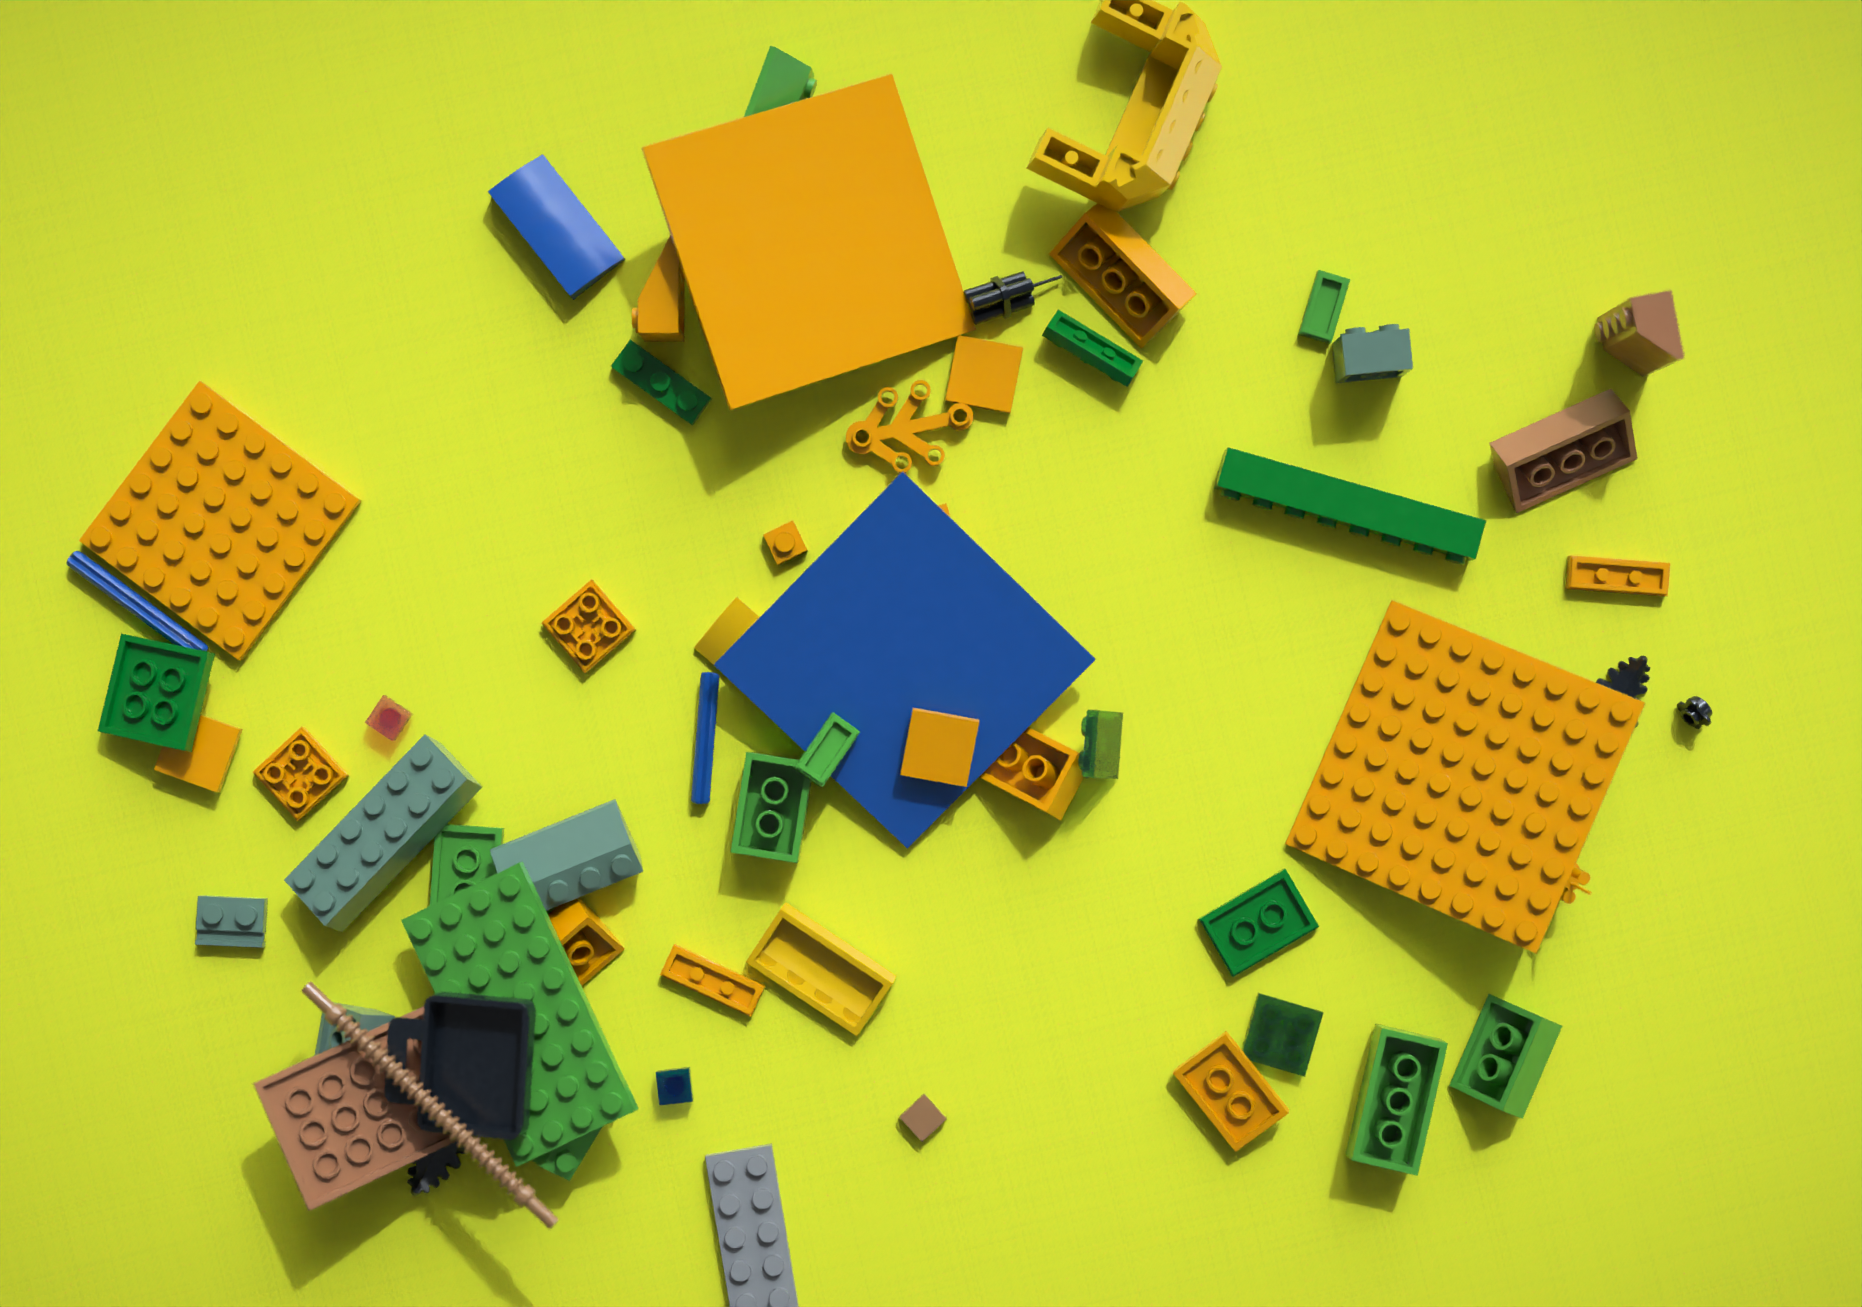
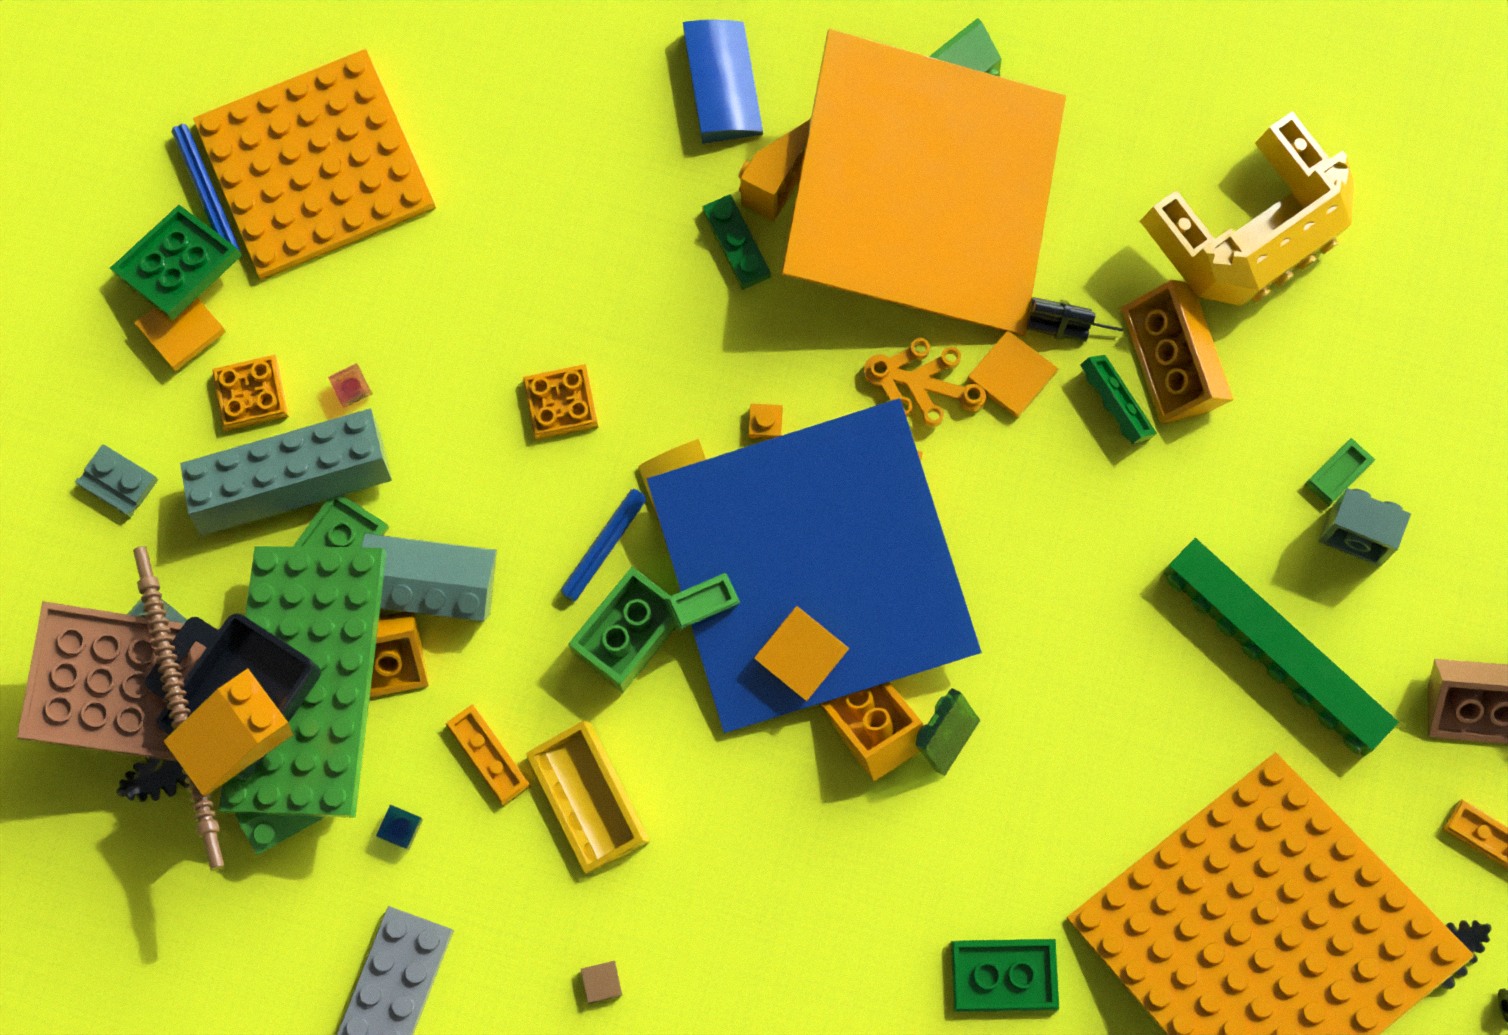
camera: 35 degrees right, 15 degrees down
(493, 1110) = (228, 733): none -> light orange slope

